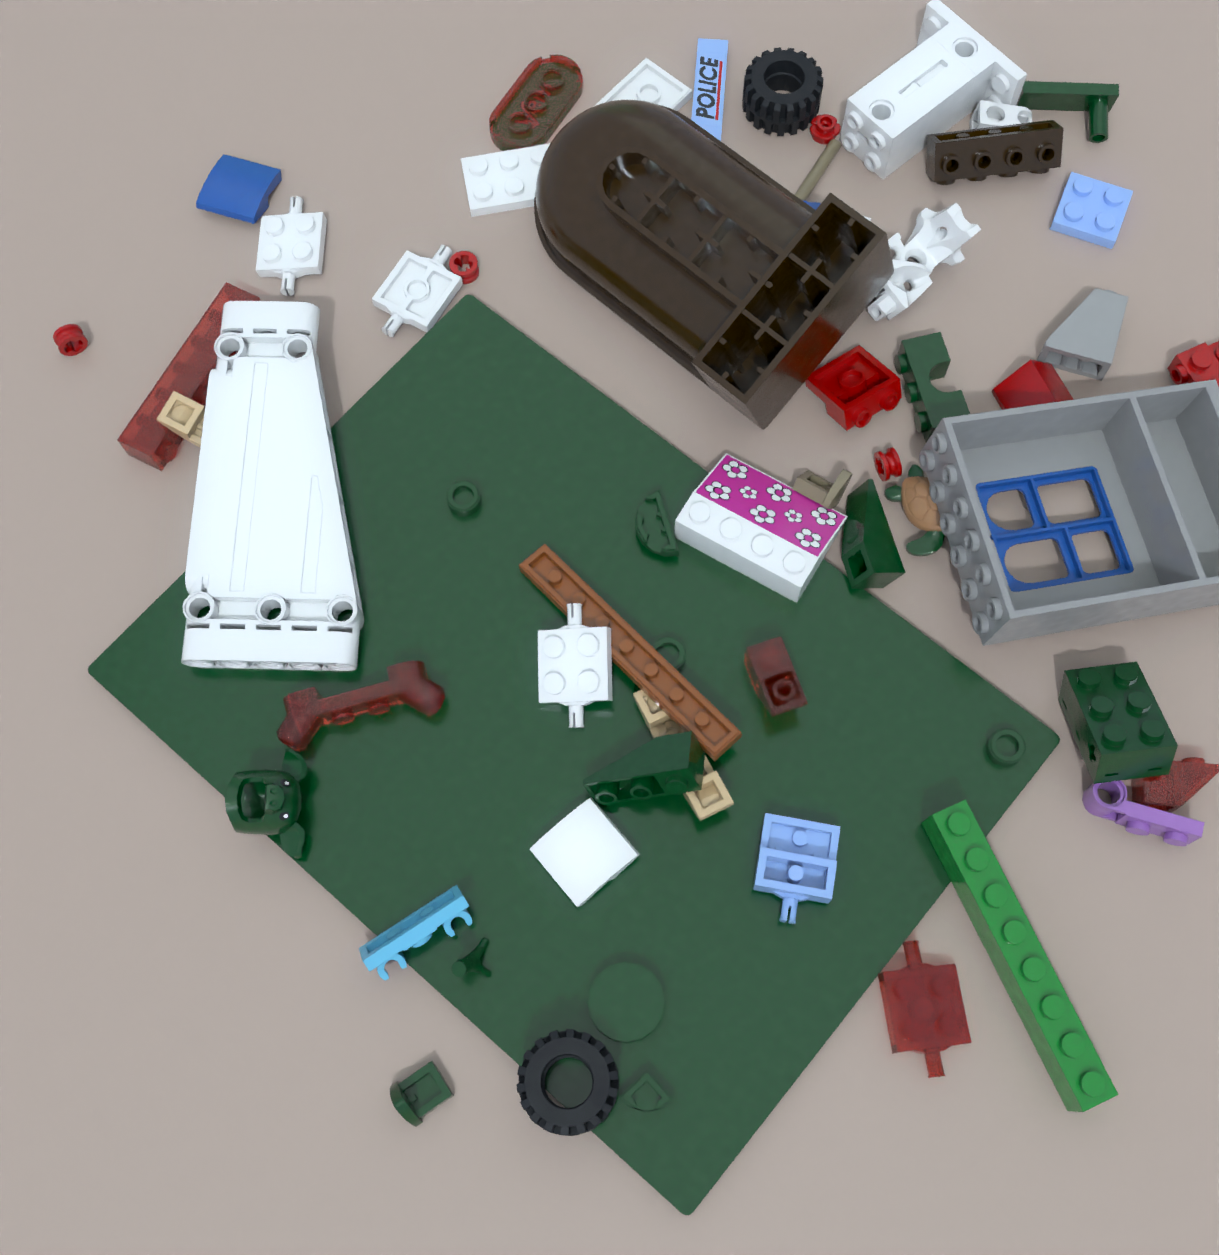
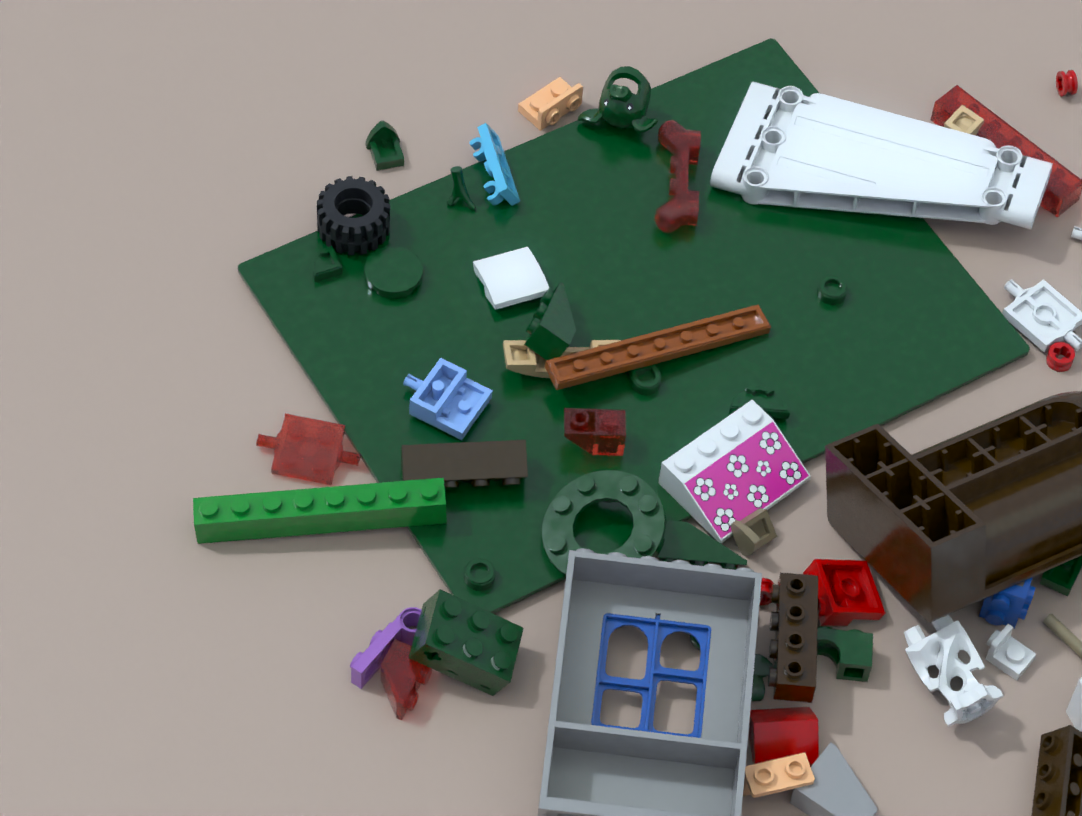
camera: 100 degrees right, 15 degrees down
(273, 905) = (551, 103): none -> light nougat bracket
(575, 665) = (657, 309): white plate -> none
(856, 645) = (609, 487): none -> dark green plate
(888, 808) = (466, 462): none -> dark brown brick
(922, 404) = (795, 637): none -> dark brown brick
(1098, 375) = (777, 775): none -> light nougat bracket

